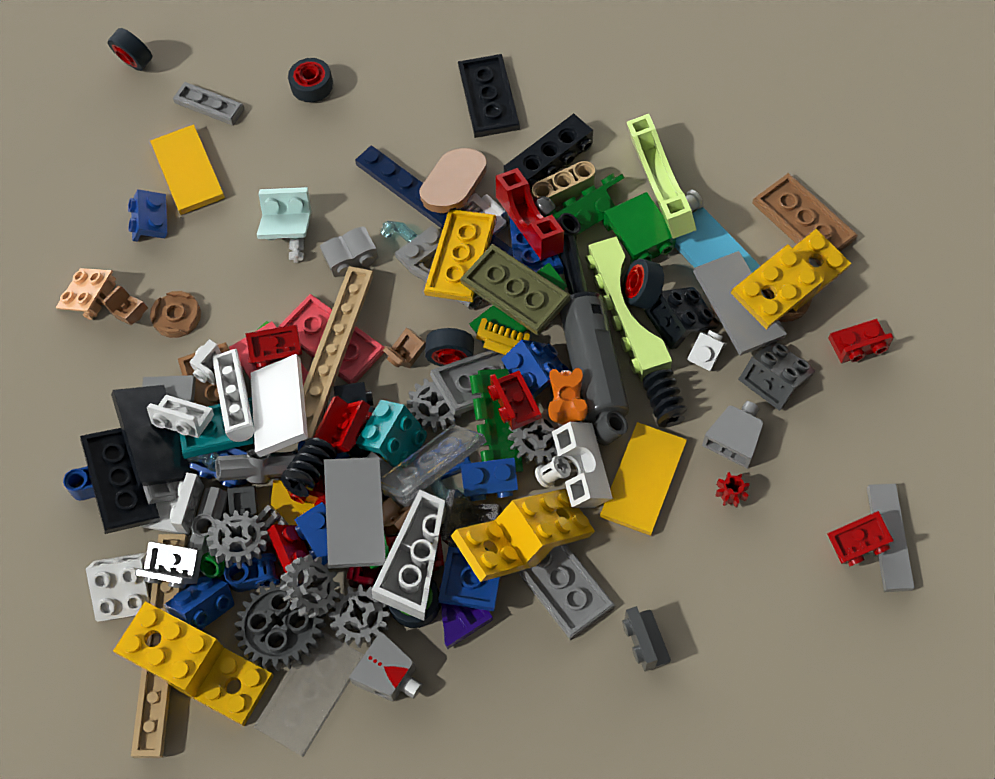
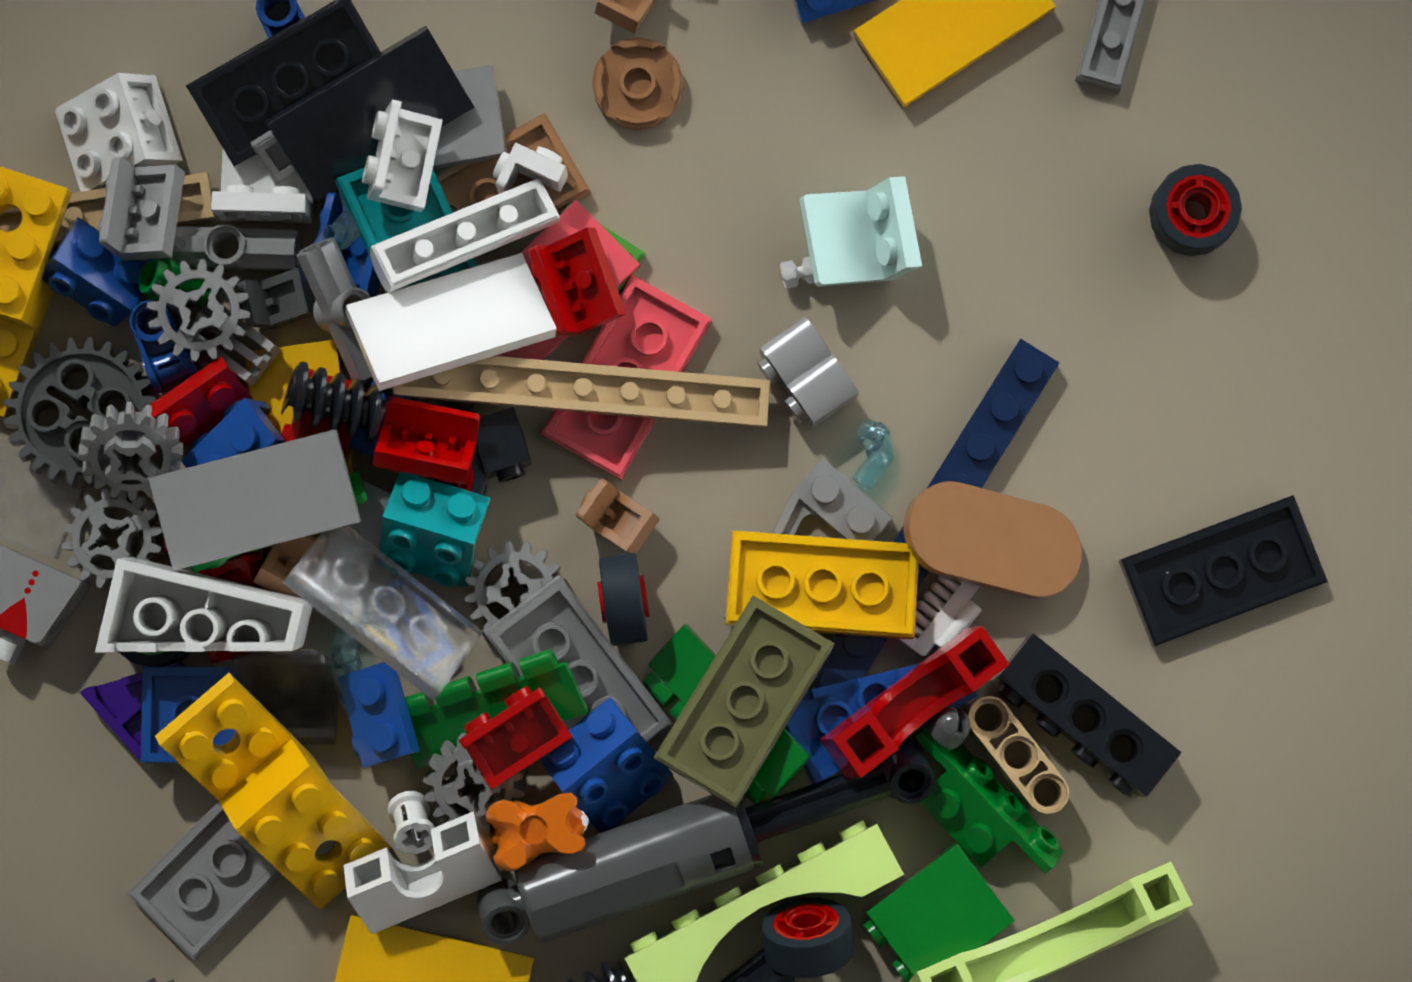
camera: 75 degrees right, 20 degrees up
(498, 342) = (645, 687): yellow piece -> none

